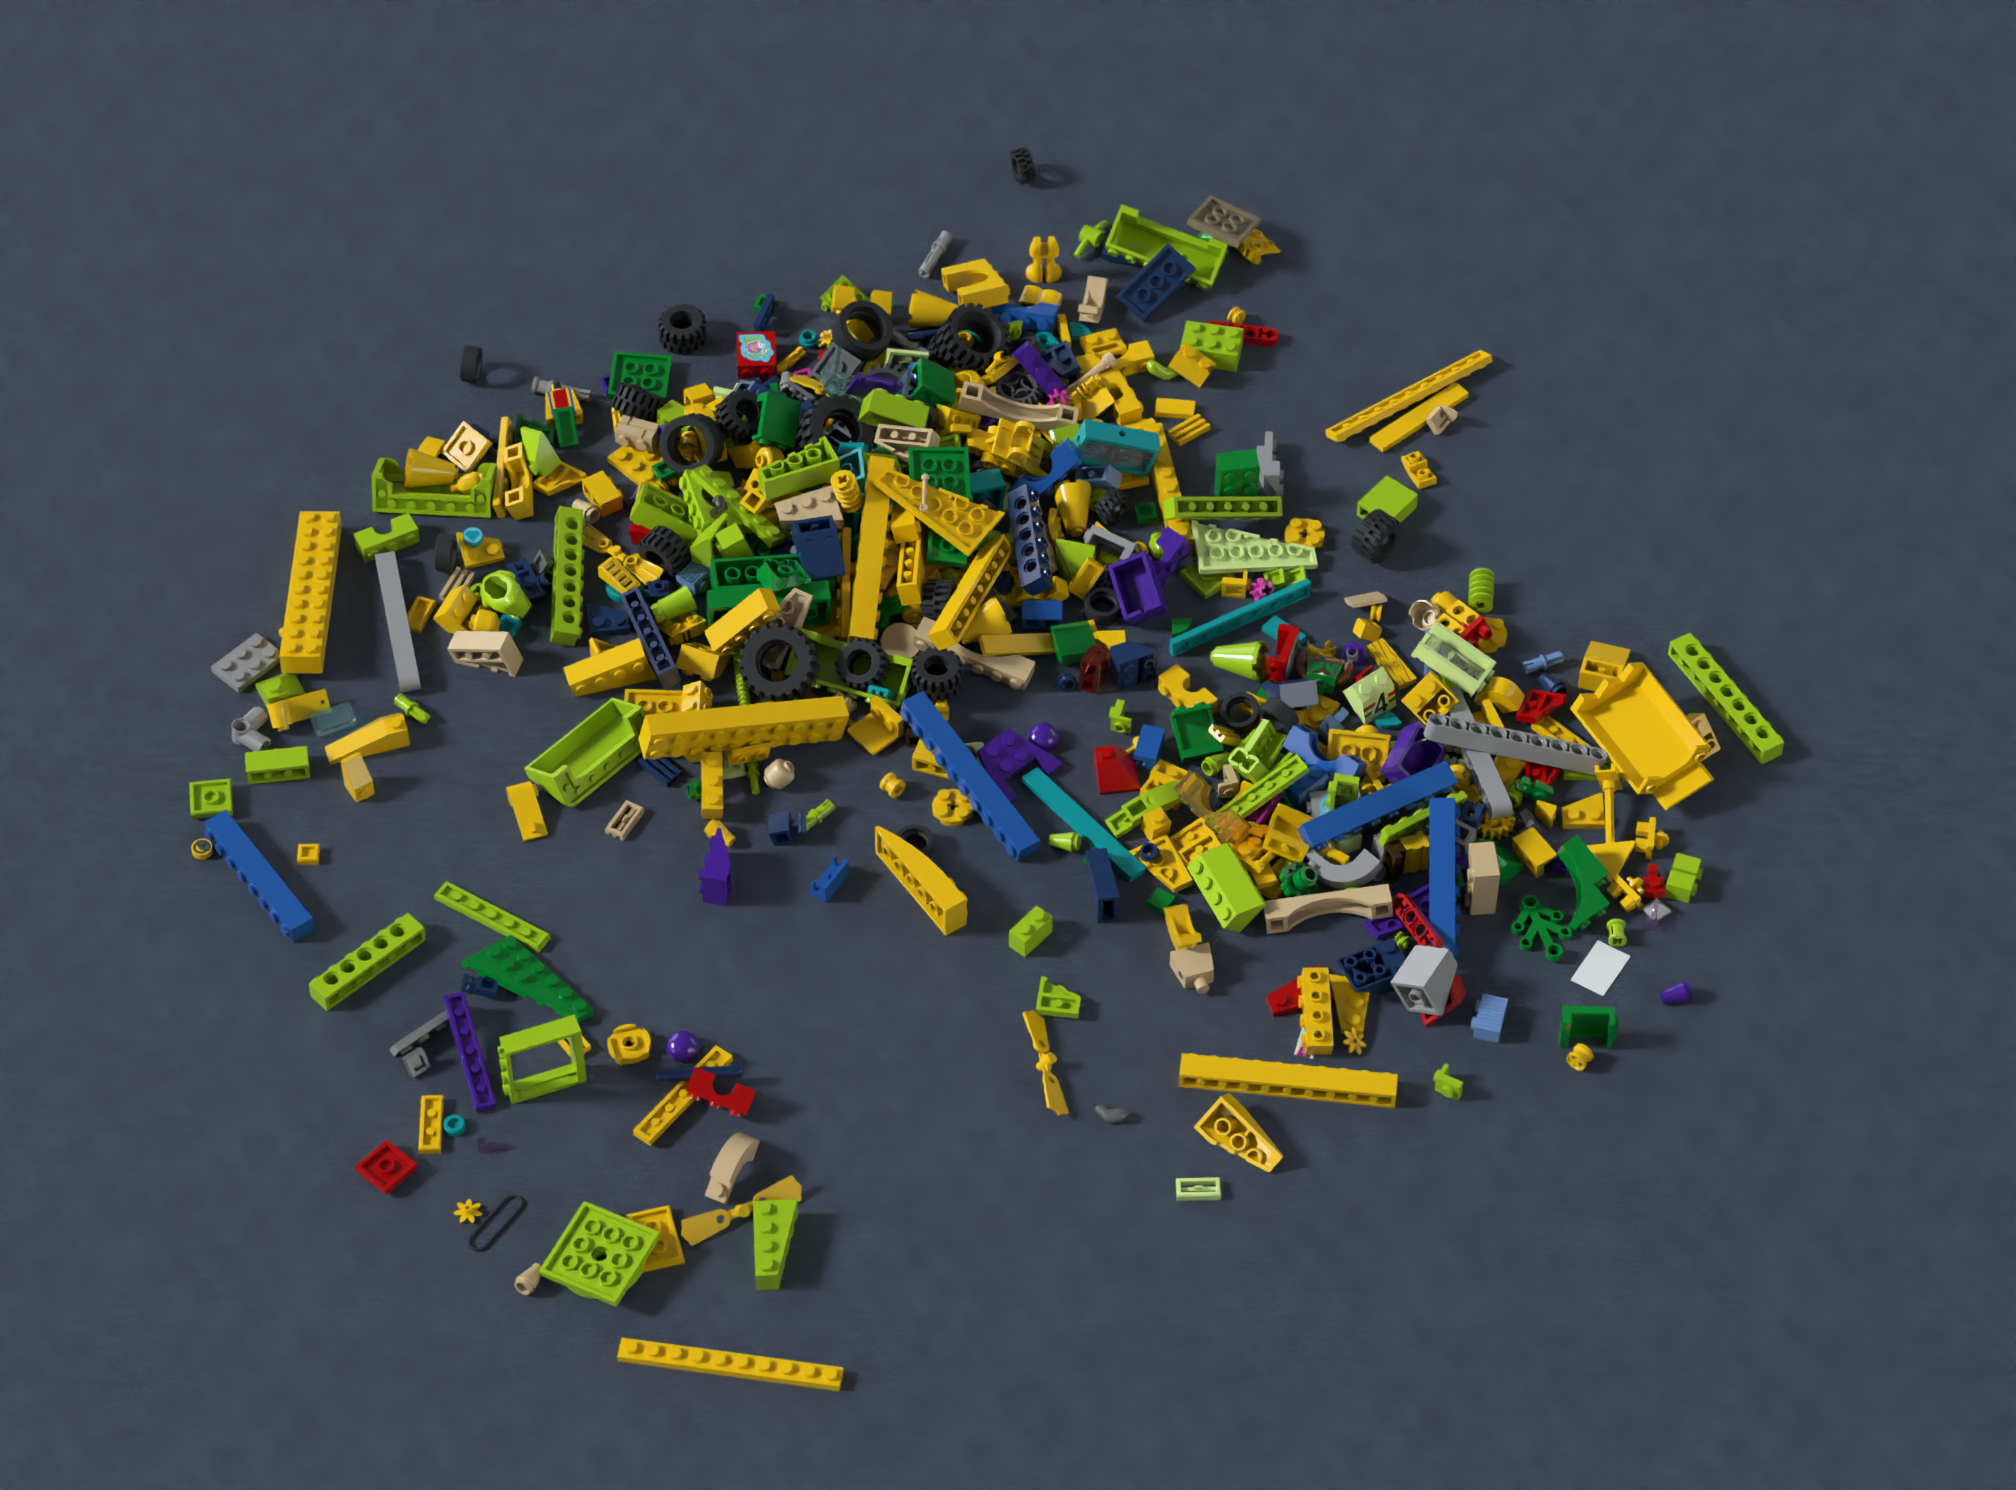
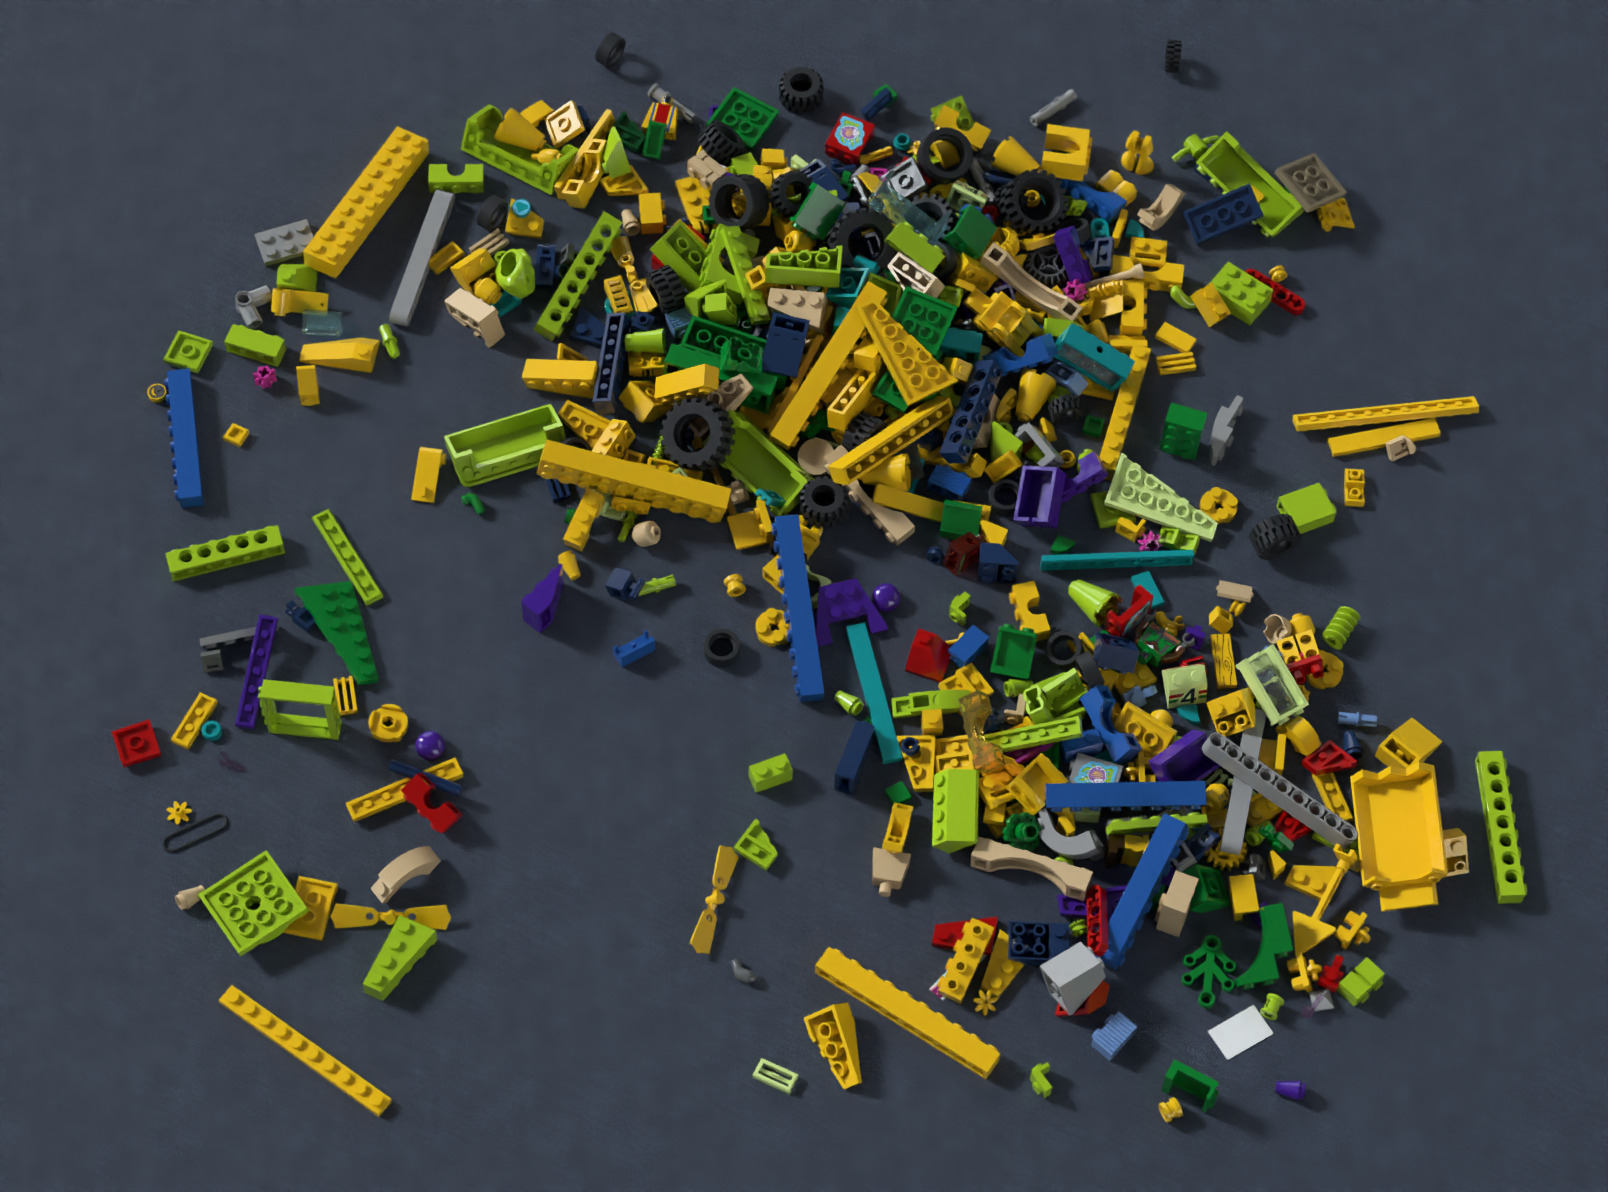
camera: 25 degrees right, 10 degrees up
(305, 789) = (265, 377): none -> dark pink gear
(588, 815) = (475, 501): none -> green arm
(622, 834) = (503, 520): tan tile -> none
(719, 507) = (728, 270): clear smoke arm -> none
(846, 491) = (832, 304): yellow piece -> none
(851, 653) = (755, 459): black tyre -> none
(863, 386) = (913, 216): dark purple piece -> none
(923, 507) = (887, 347): tan hinge -> none
(923, 881) = (710, 702): yellow slope -> none
(997, 360) = (1042, 231): yellow hand -> none
(997, 502) = (958, 368): none -> yellow slope
(1223, 508) = (1154, 453): lime brick -> none
(1225, 735) = (1038, 664): yellow tile -> none
(1342, 790) = (1100, 767): lime bracket -> none

